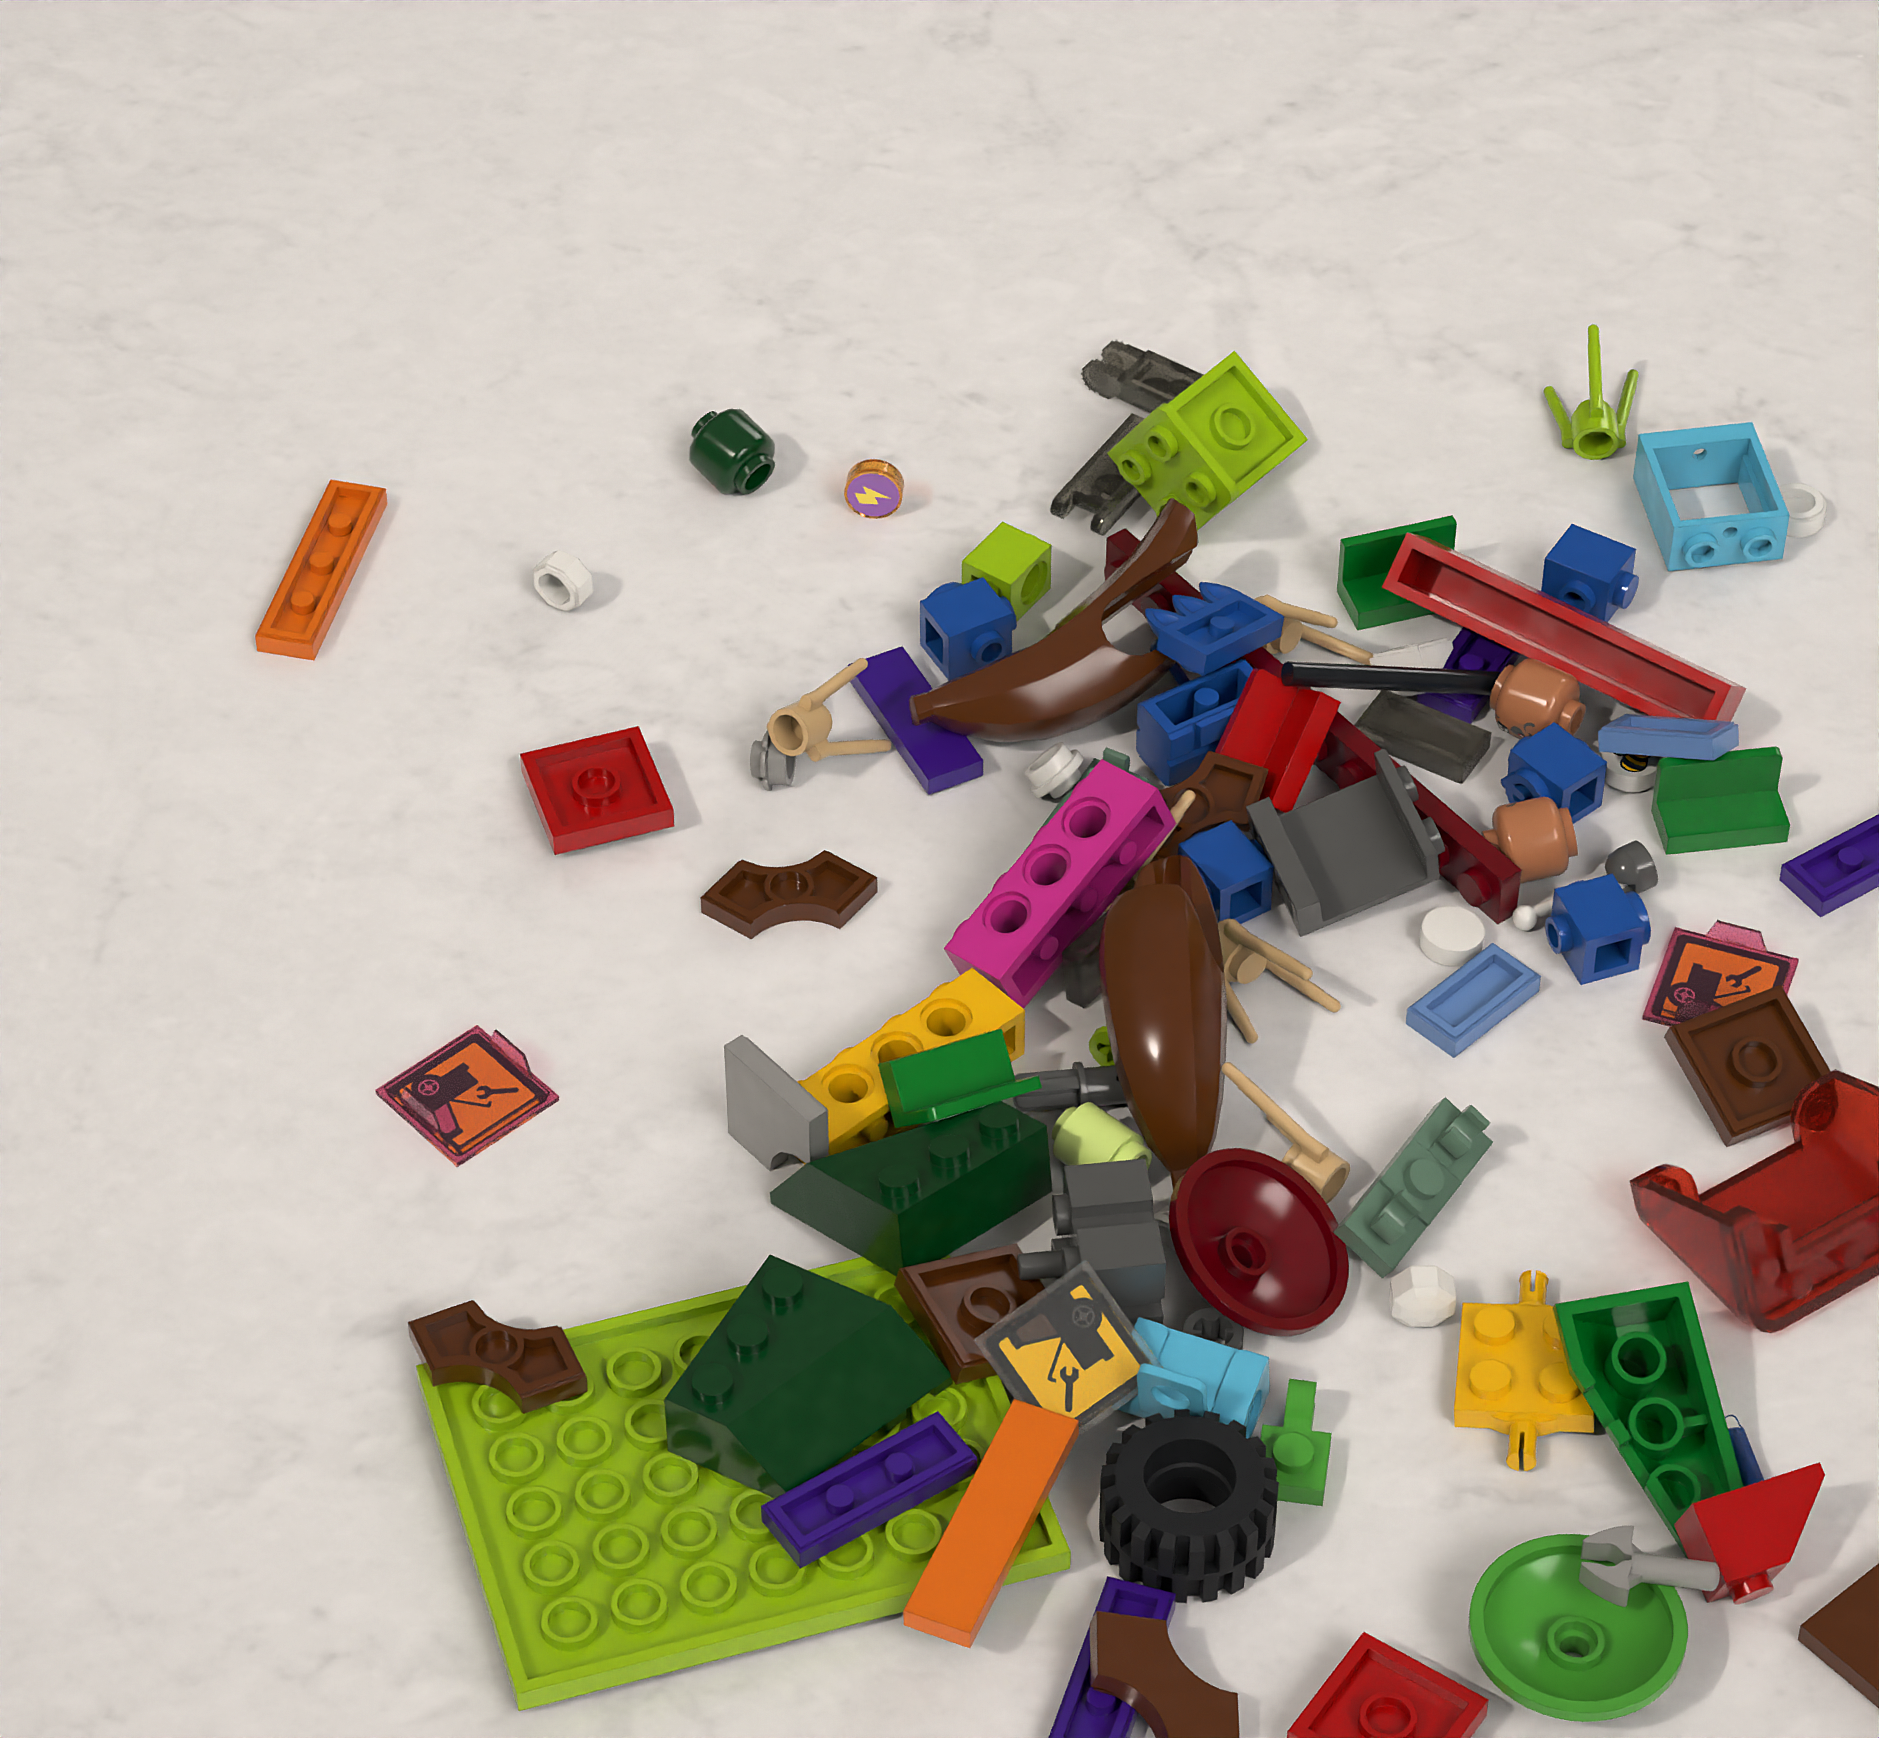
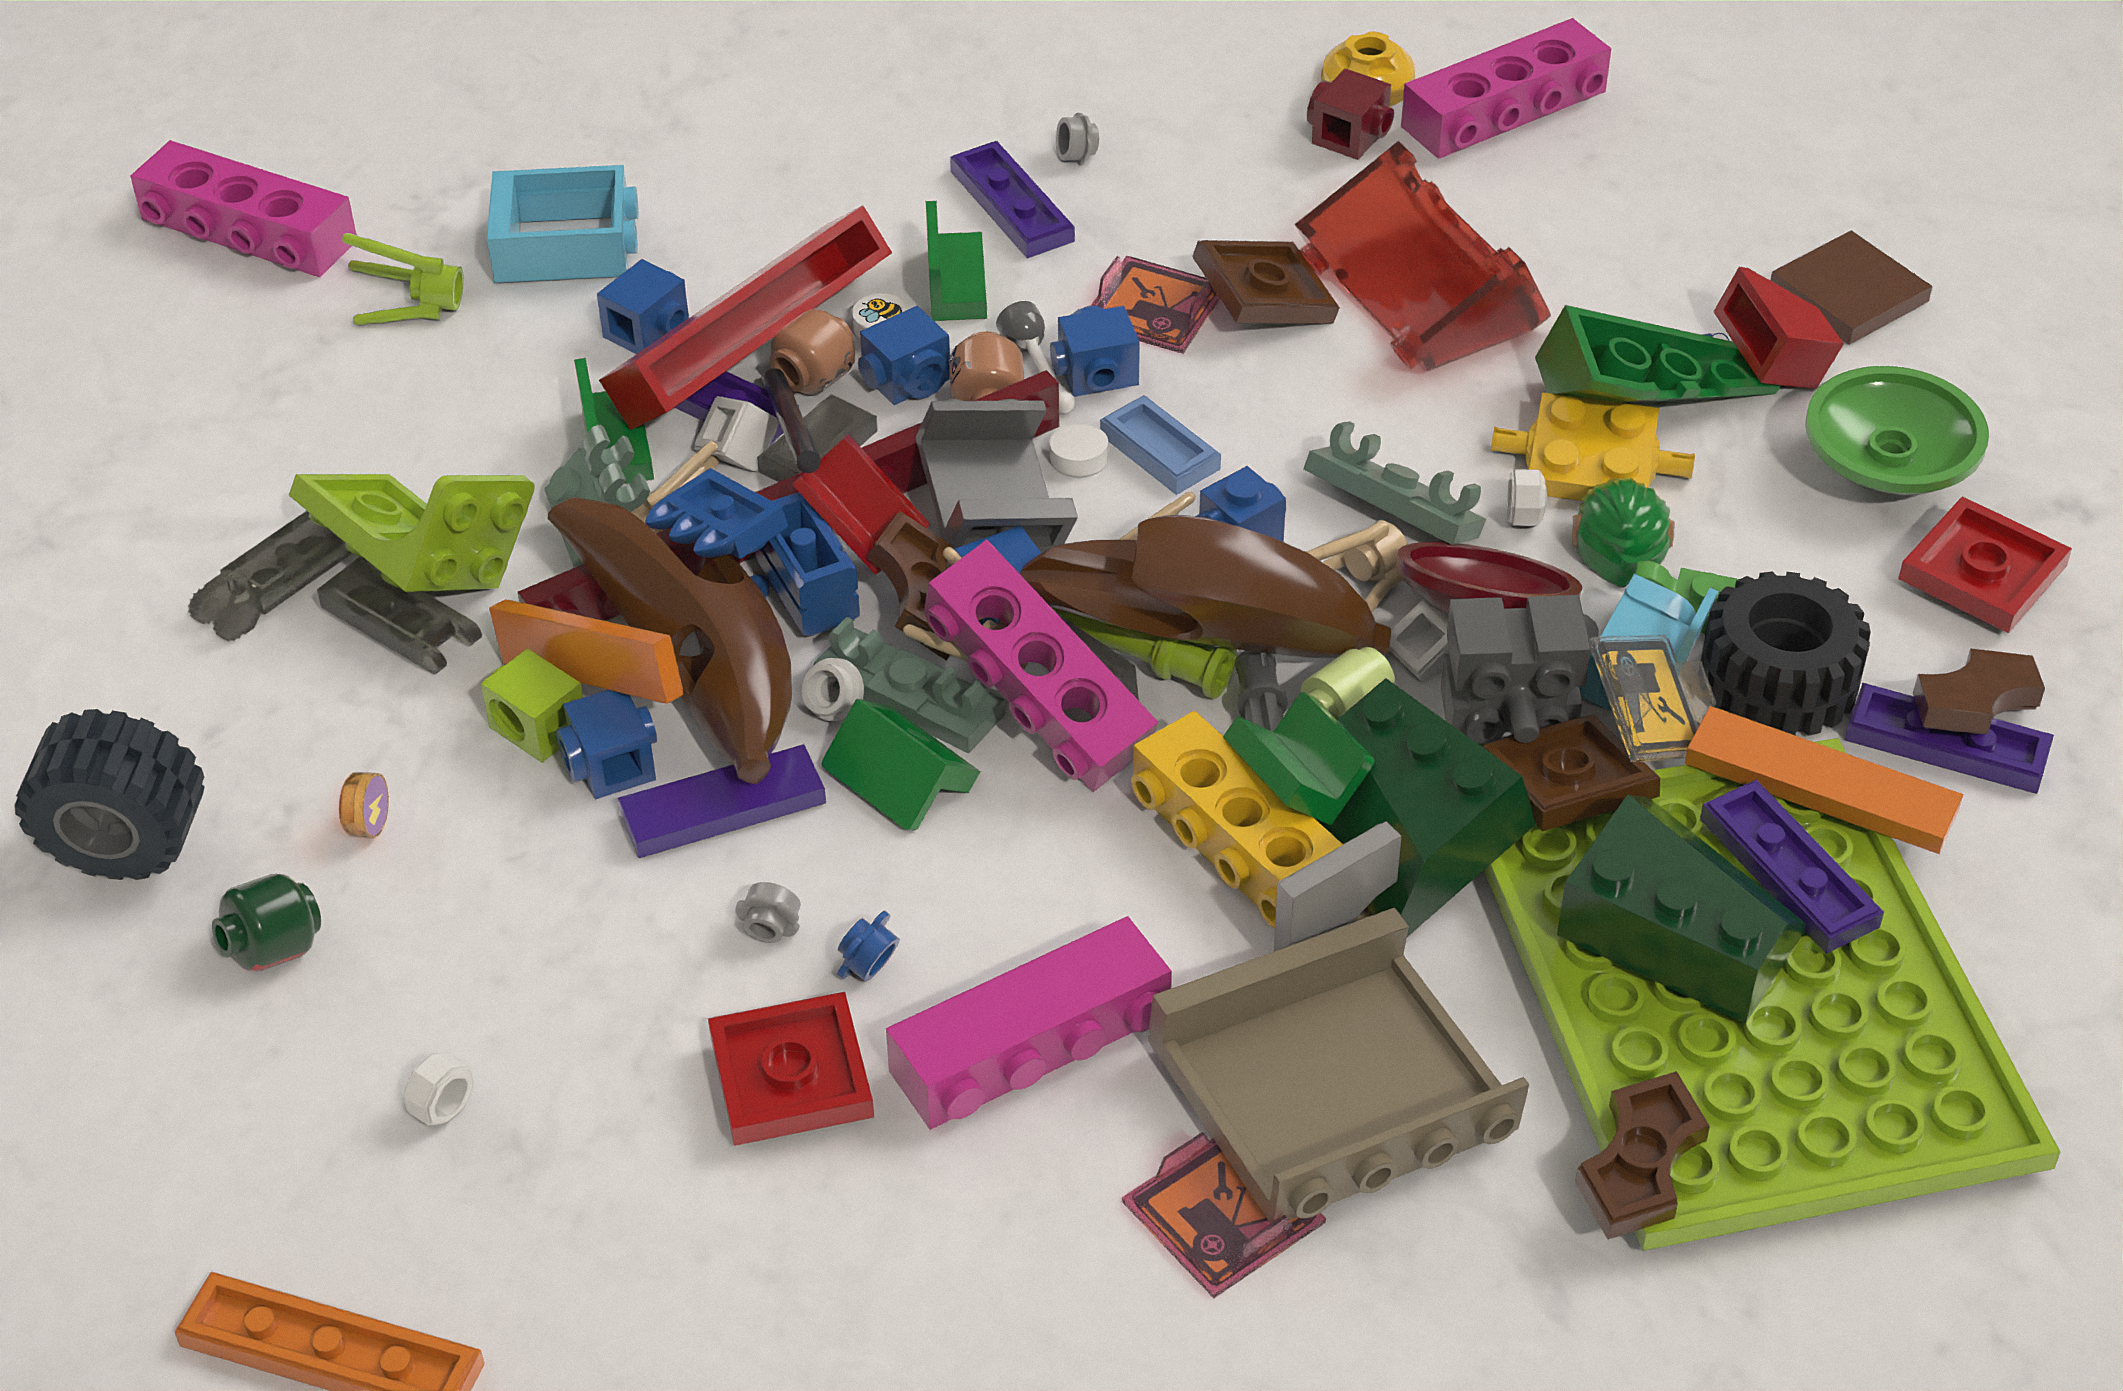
camera: 85 degrees left, 0 degrees up
(608, 1151) = (1329, 1068): none -> dark tan panel
(650, 938) = (1026, 1022): none -> dark pink brick
(732, 824) = (867, 947): none -> blue plate
(762, 896) = (964, 940): reddish brown tile -> none
(808, 722) = (761, 853): tan plant -> none
(832, 320) = (110, 795): none -> black wheel
(976, 829) = (894, 763): none -> green panel
(1039, 576) = (591, 649): none -> orange tile
(1297, 560) = (597, 476): none -> sand green plate
(1332, 1051) = (1245, 502): none -> blue brick
(1391, 1385) = (1620, 527): none -> green hair
(1636, 1567) = (1848, 378): light grey bar -> none
(1668, 737) = (897, 263): medium blue tile -> none
(1676, 276) = (243, 208): none -> dark pink brick

